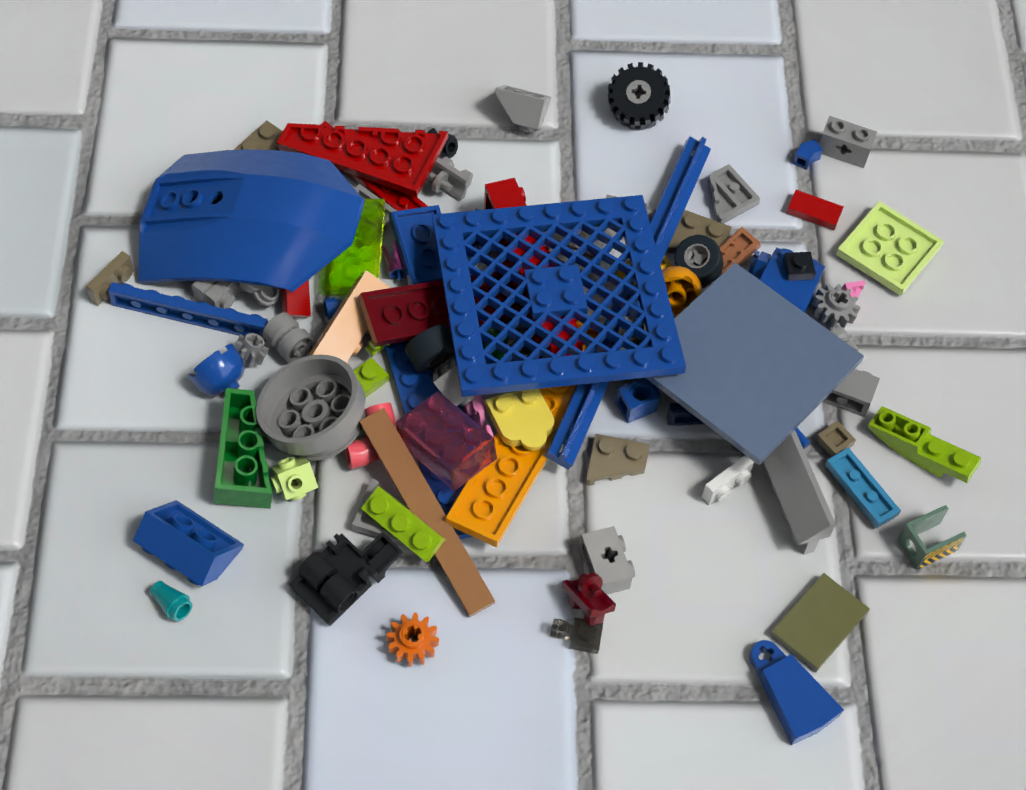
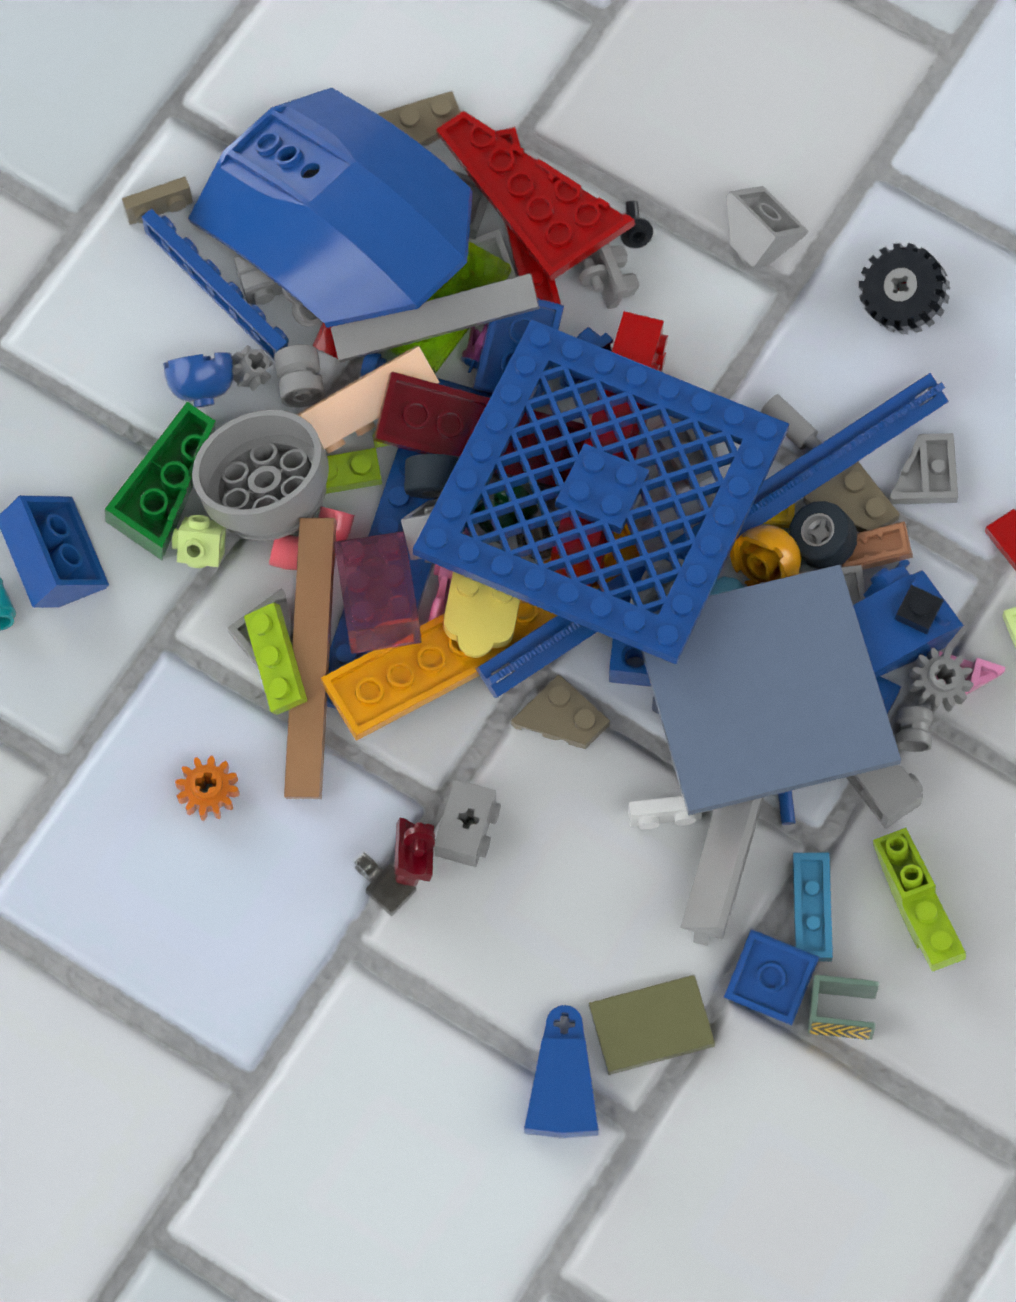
camera: 40 degrees right, 10 degrees up
(340, 574) = (178, 674): black plate -> none
(362, 251) = (436, 318): none -> light grey tile
(835, 439) = (824, 834): dark tan plate -> none
(873, 545) = (771, 977): none -> blue tile

